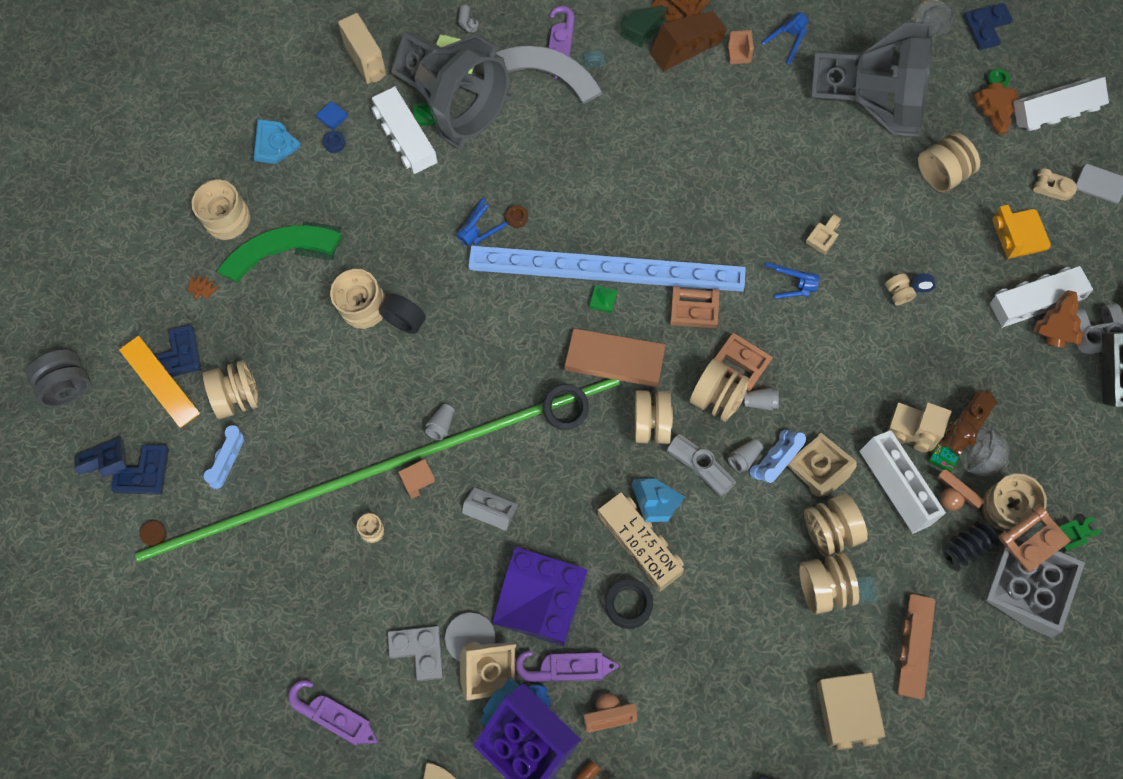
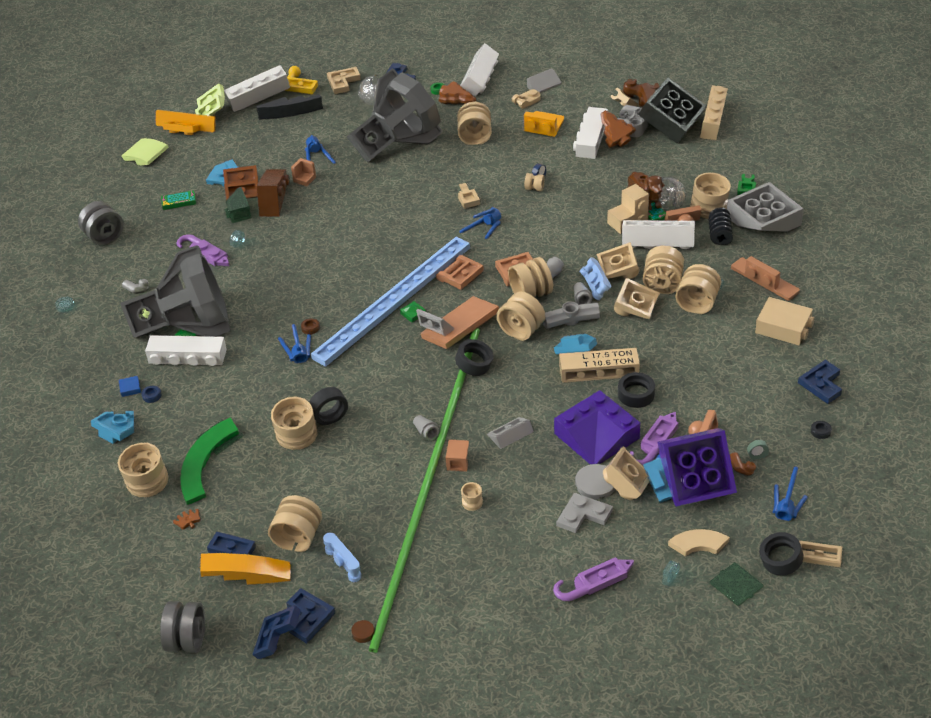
camera: 55 degrees left, 25 degrees down
(362, 48) = (101, 339): tan brick -> none
(554, 63) = (235, 250): light grey tile -> none
(590, 335) = (434, 323): none -> light grey slope
(771, 521) = (635, 300): none -> tan slope
(1039, 546) = (746, 189): nougat plate -> none

